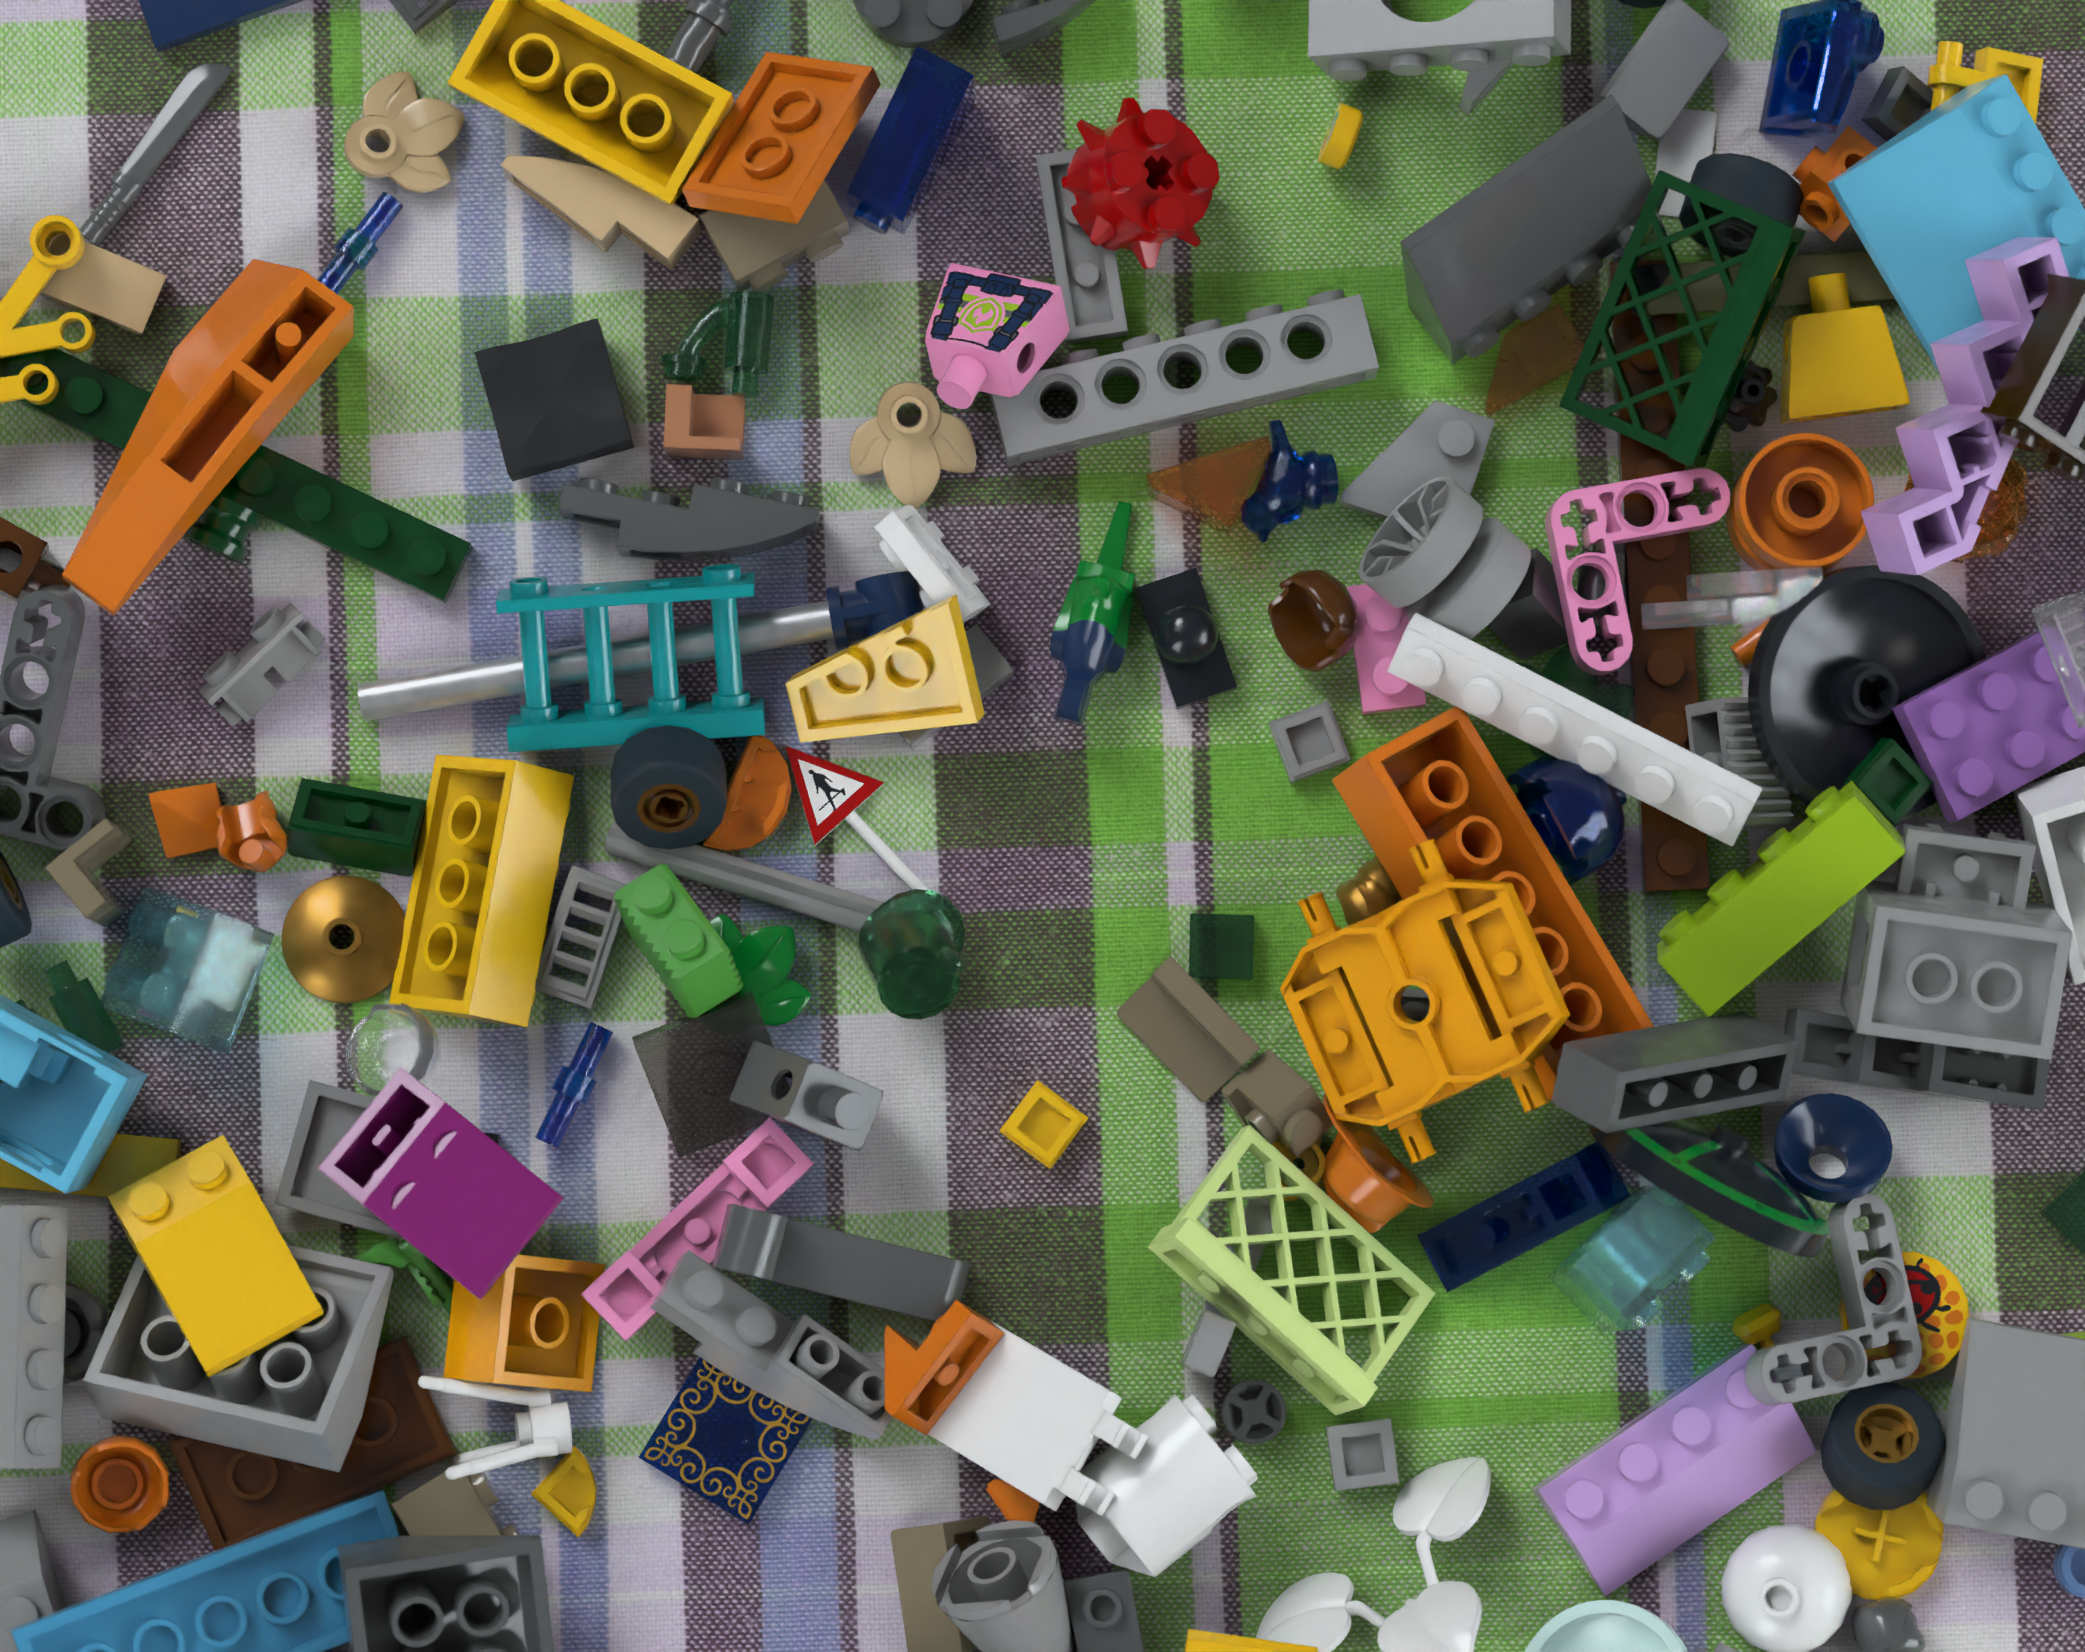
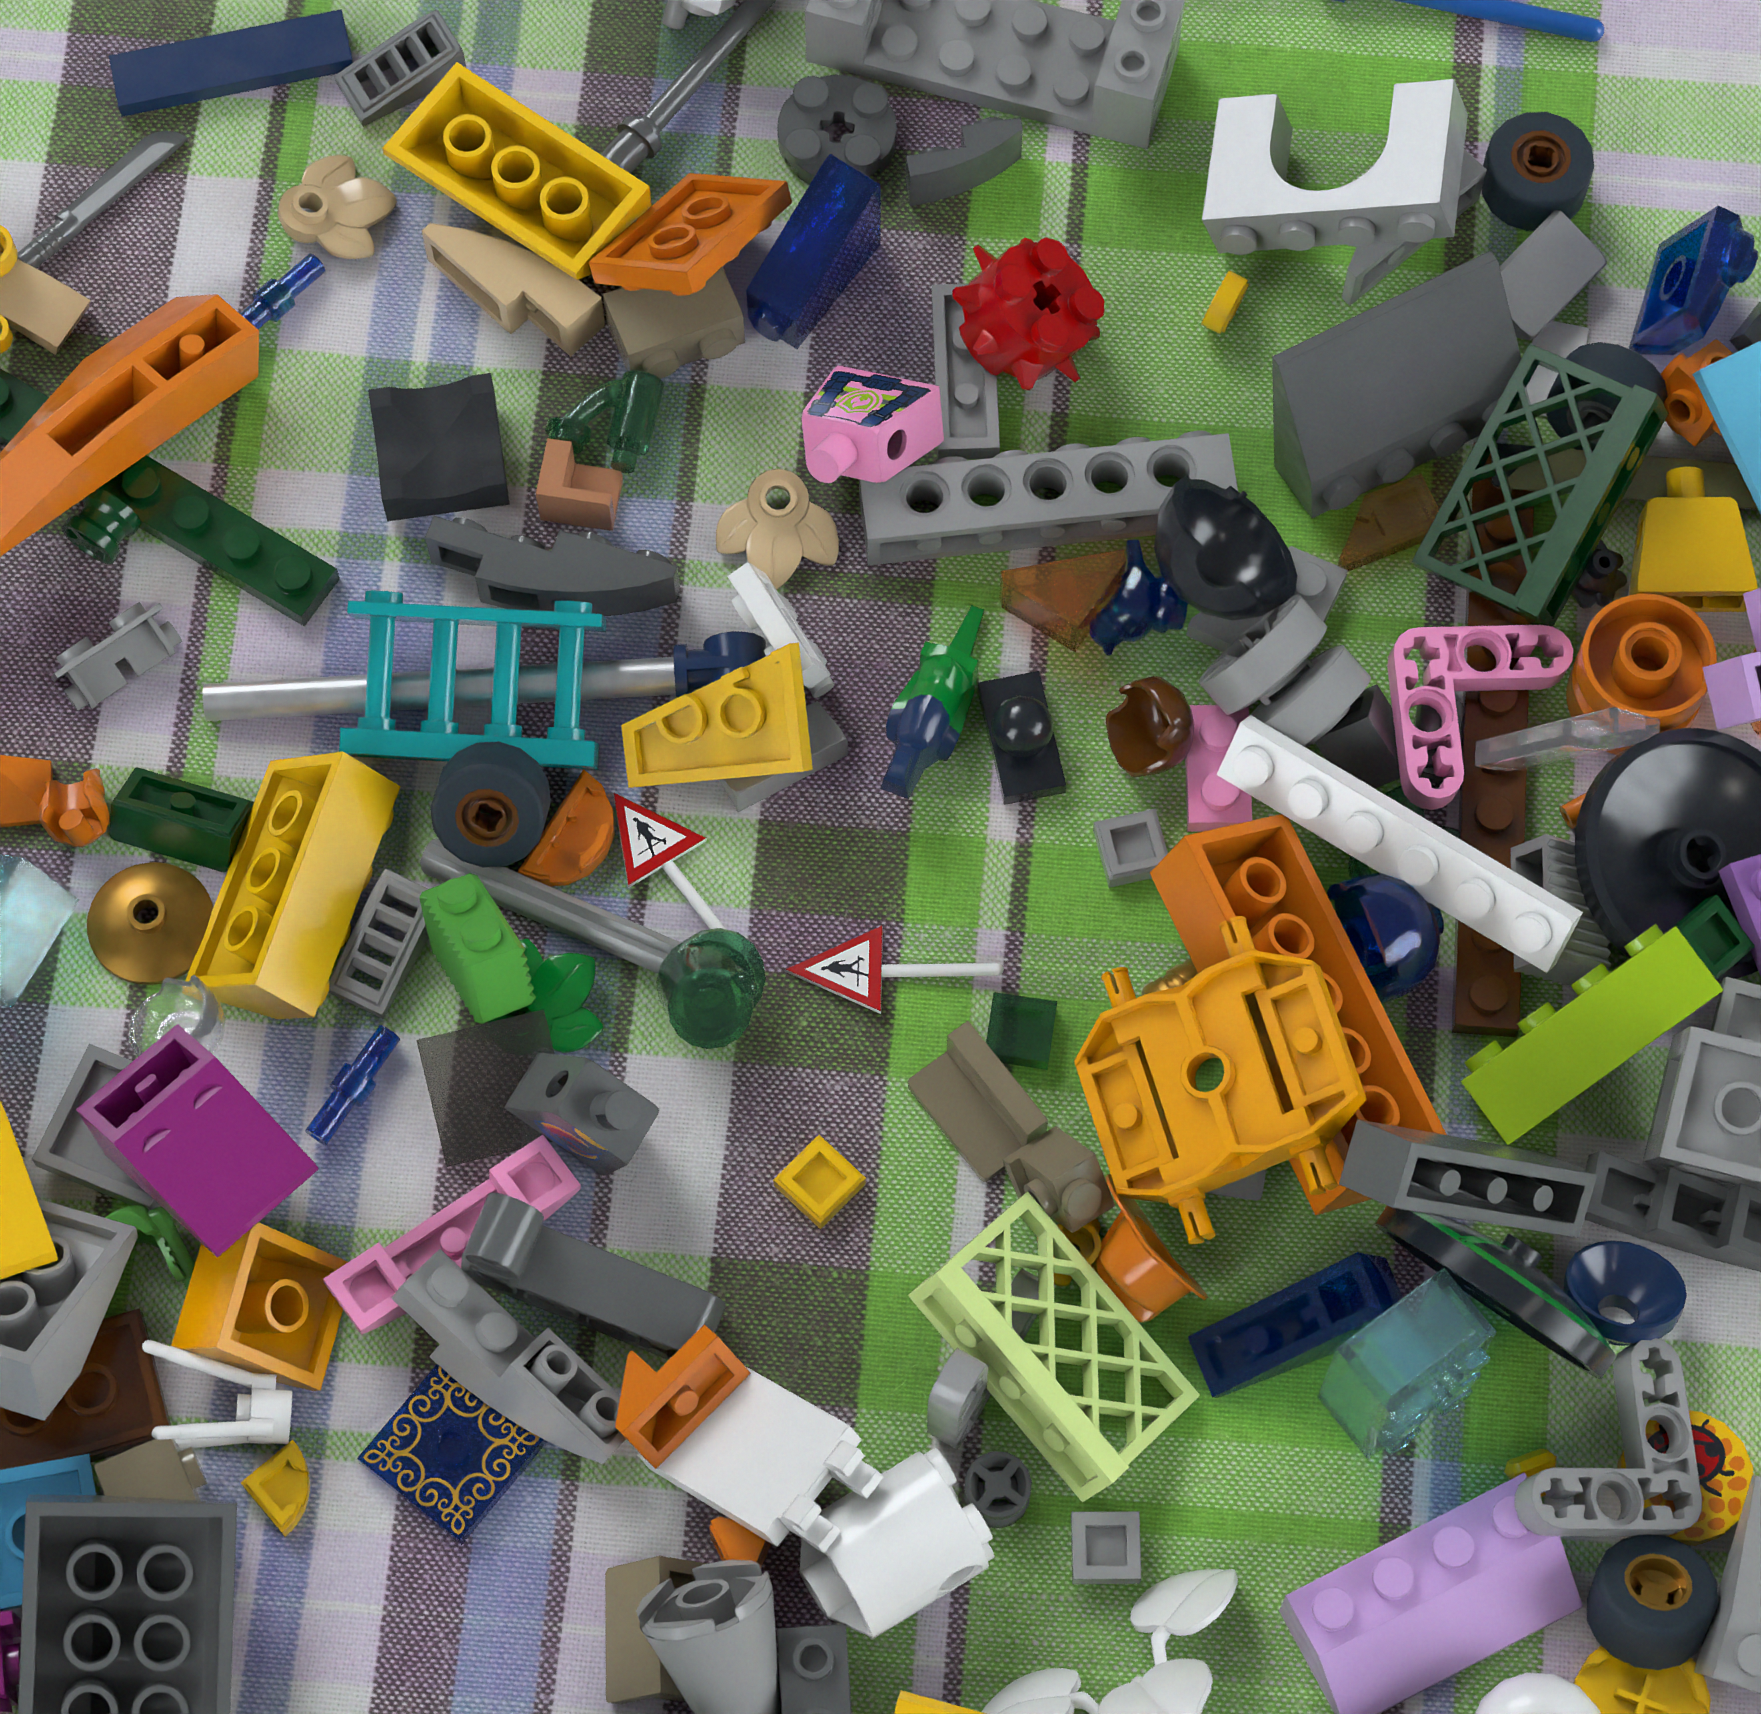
camera: 10 degrees right, 15 degrees down
(1051, 902) = (856, 970): none -> piece
(1370, 433) = (1222, 552): none -> black cylinder

